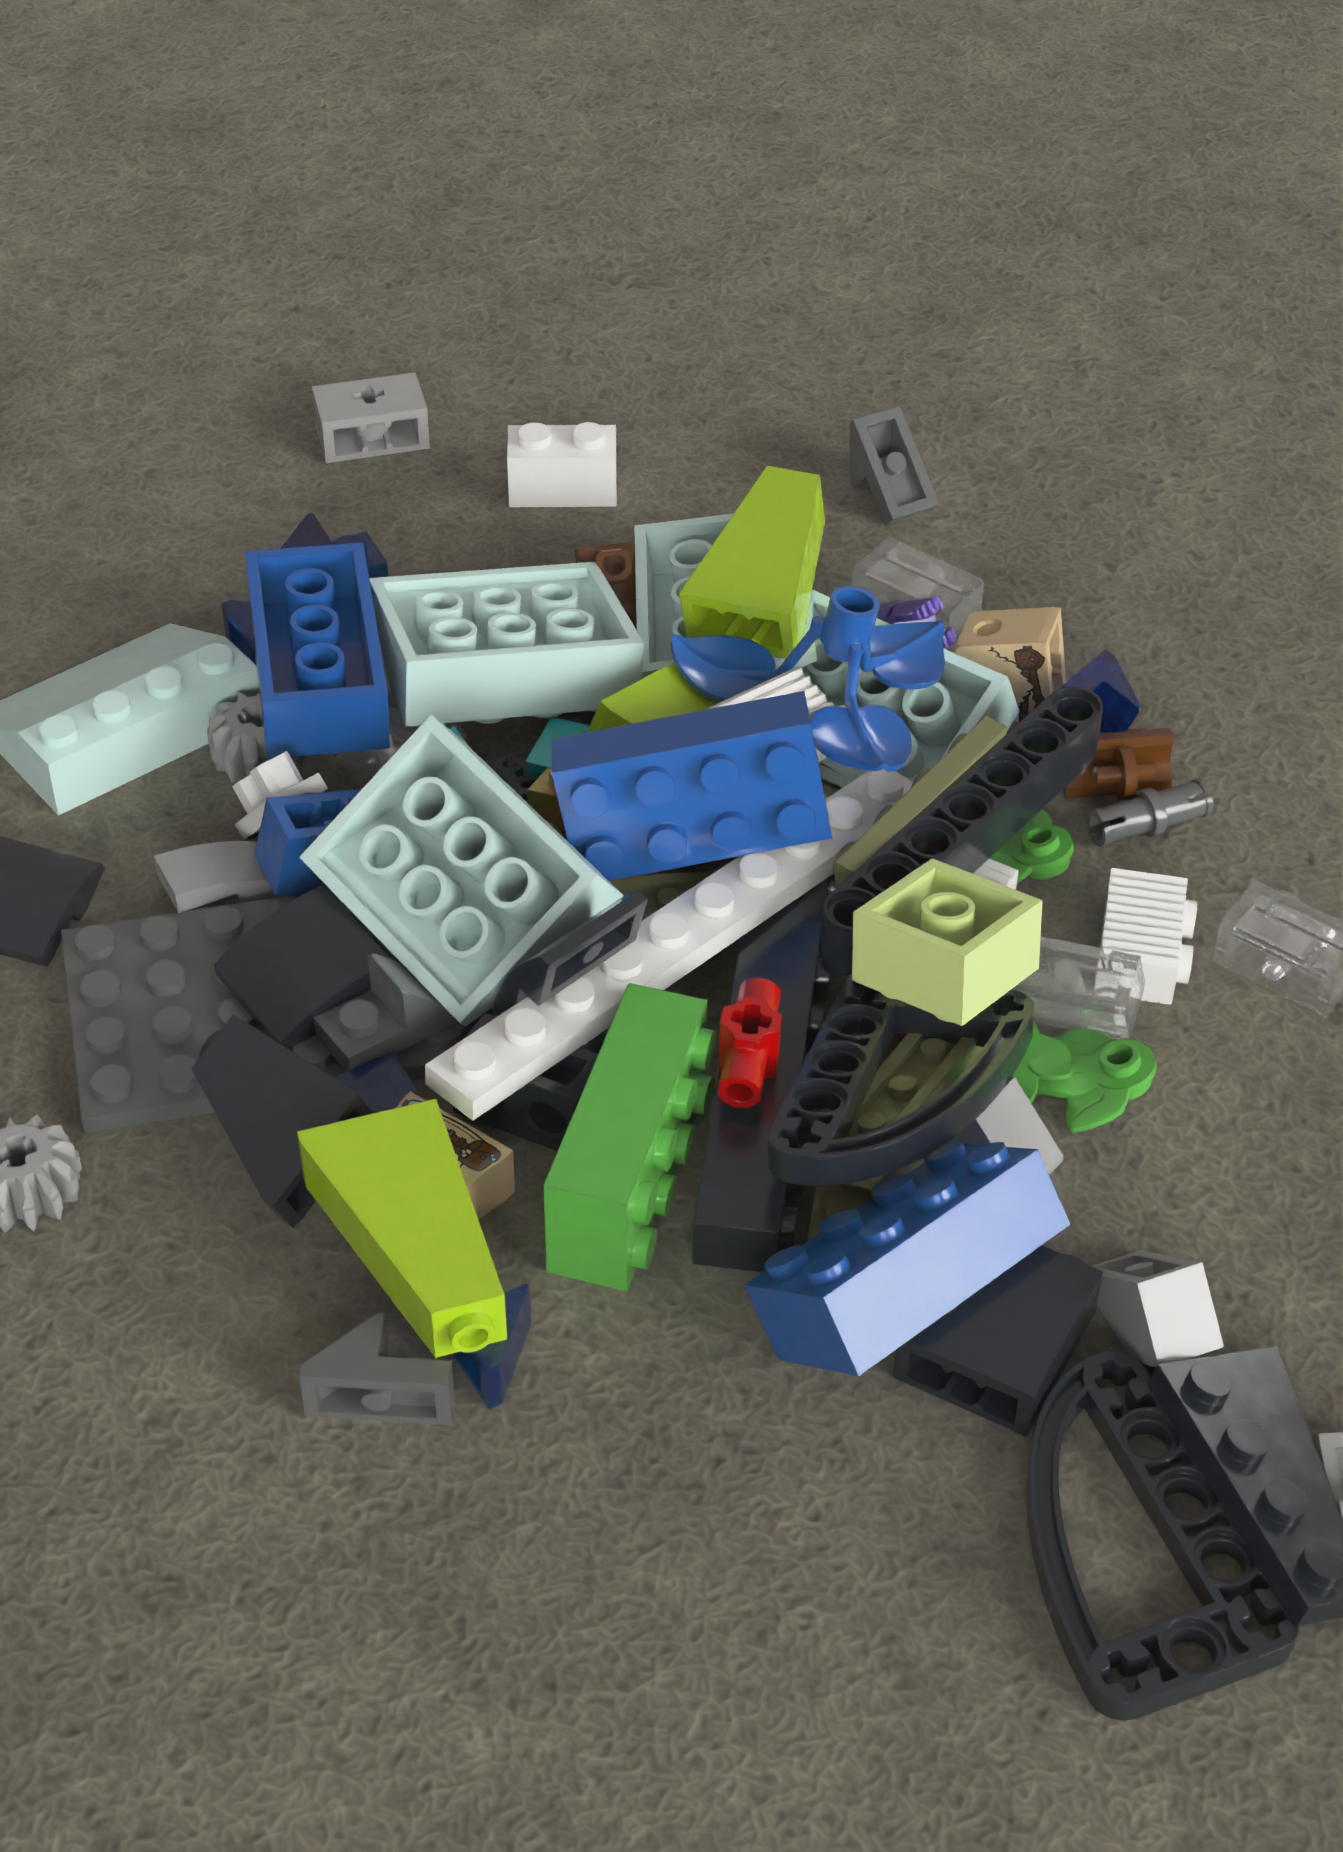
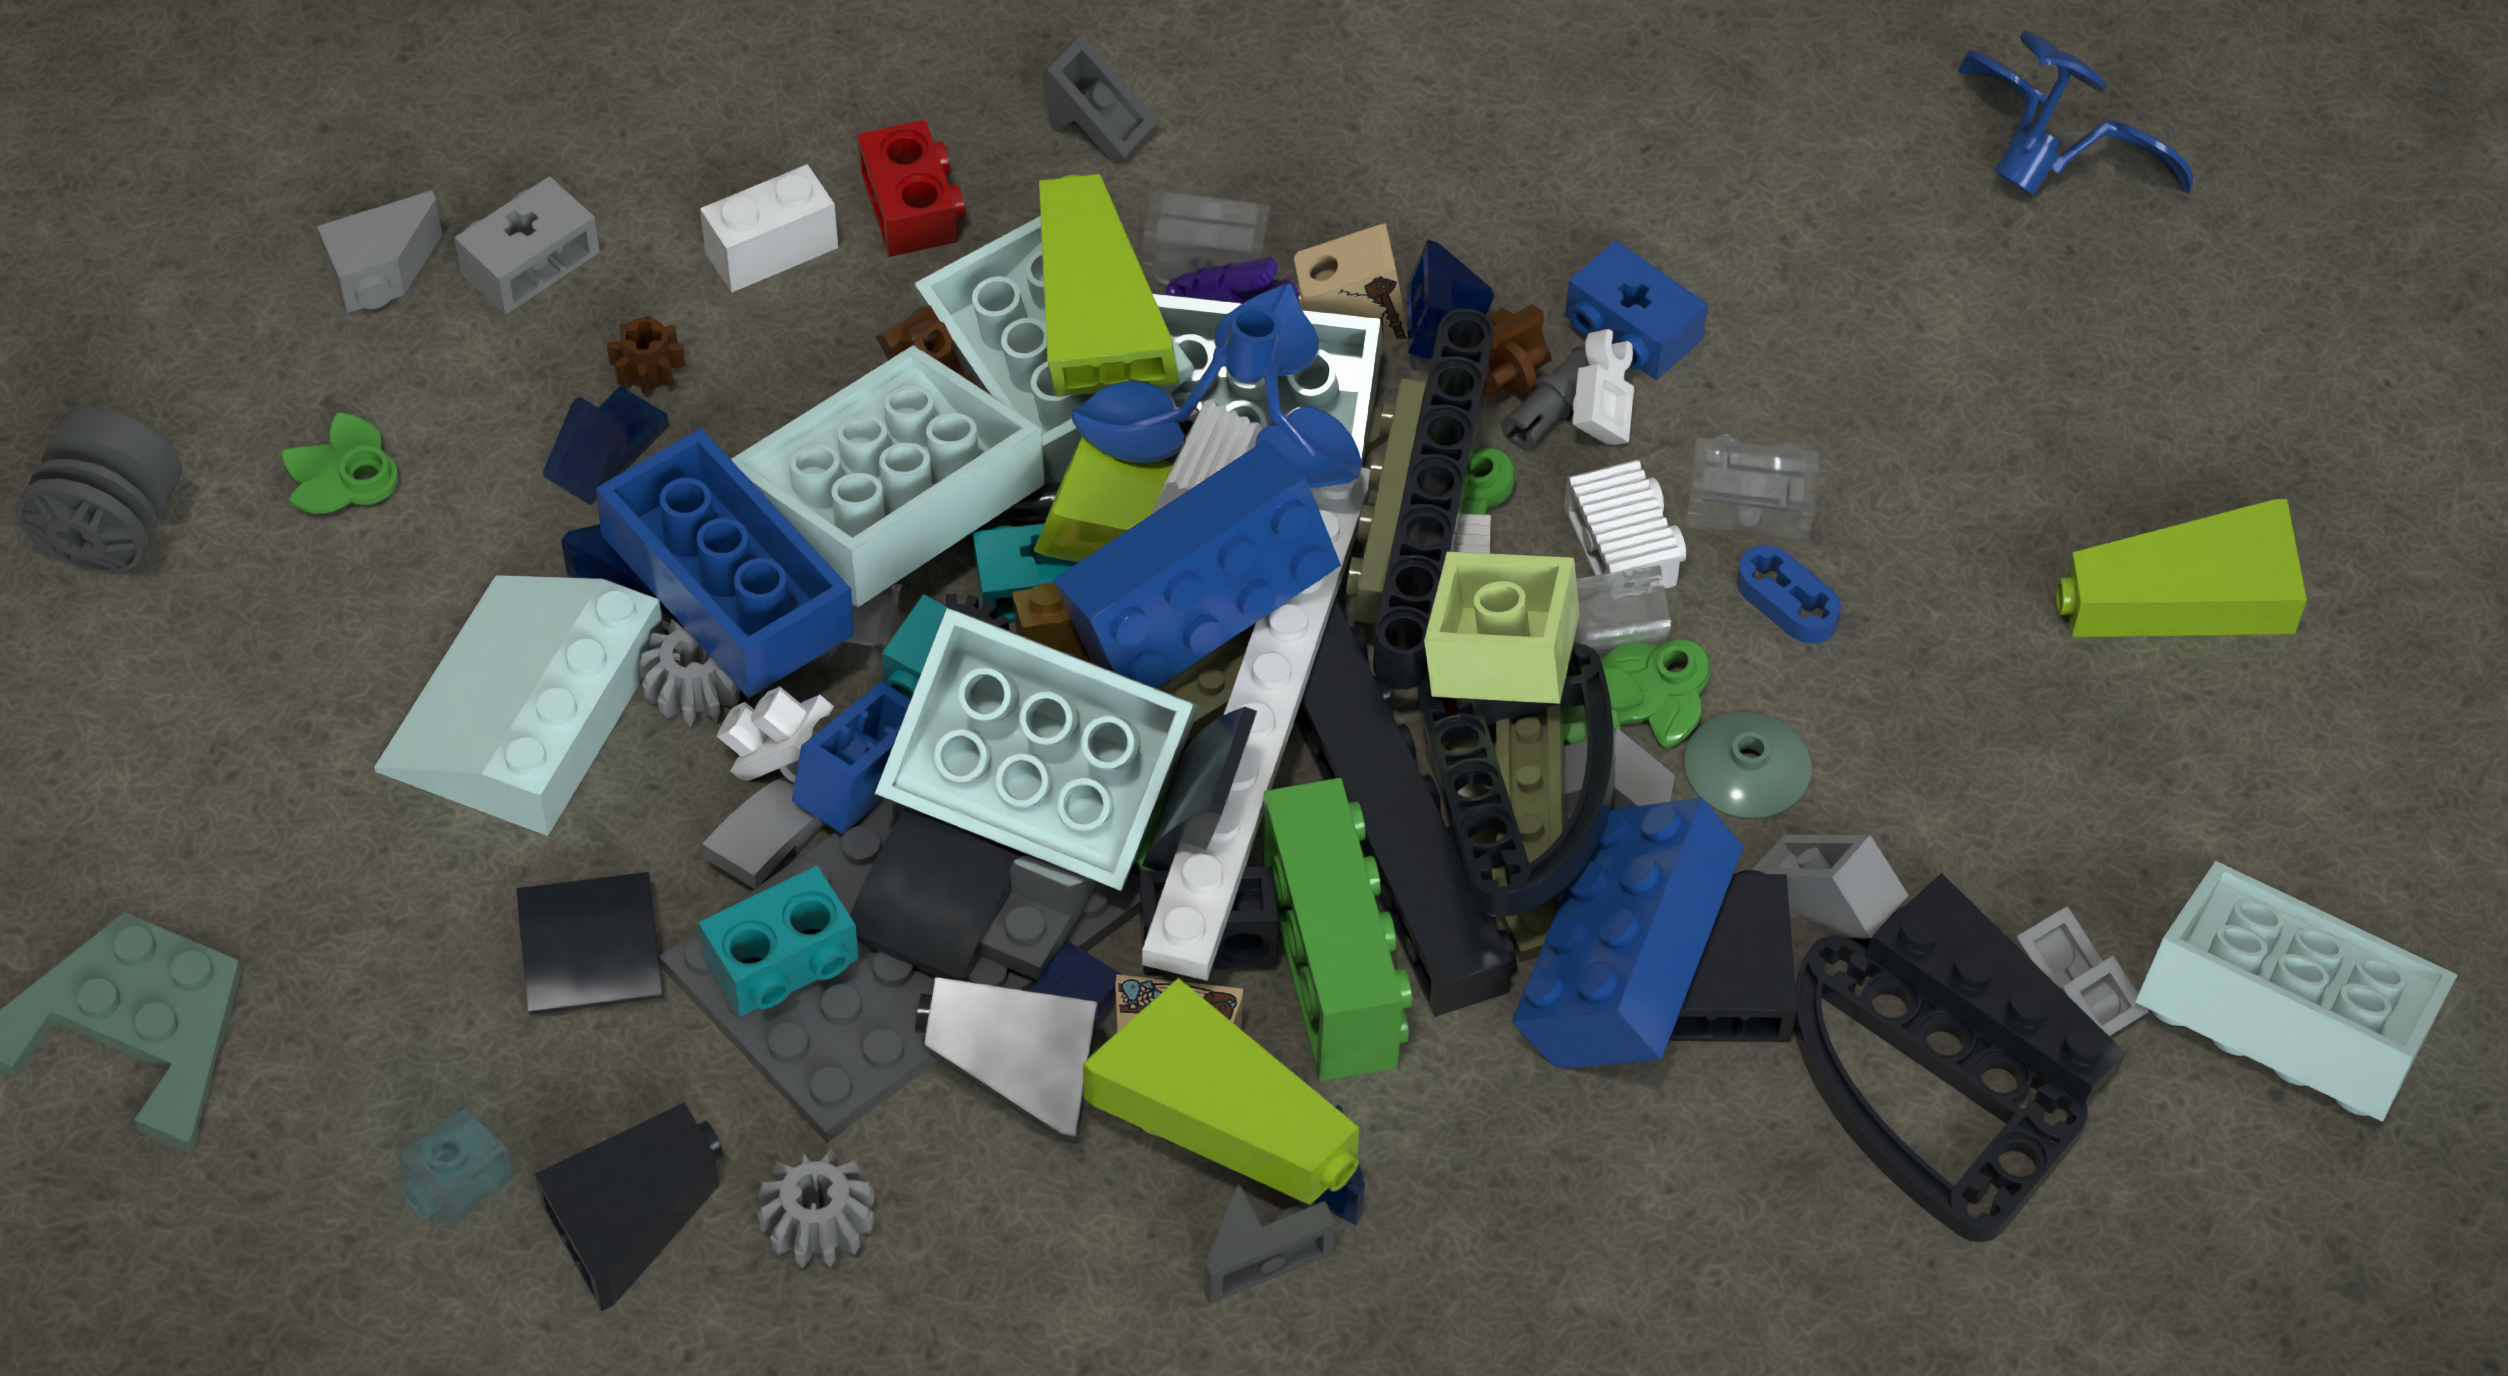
camera: 30 degrees left, 10 degrees up
(118, 518) = (331, 472): none -> bright green plate
(145, 945) = (771, 929): none -> teal brick
(260, 384) = (380, 250): none -> light grey slope
(401, 515) = (646, 354): none -> reddish brown gear
(697, 473) = (909, 187): none -> red brick
(749, 1042) = (1389, 797): red axle -> none
(1142, 1195) = (1742, 784): none -> sand green dish
(1191, 820) = (1602, 395): none -> white plate
(1269, 773) = (1639, 307): none -> blue brick
(1286, 1044) = (1790, 592): none -> blue beam

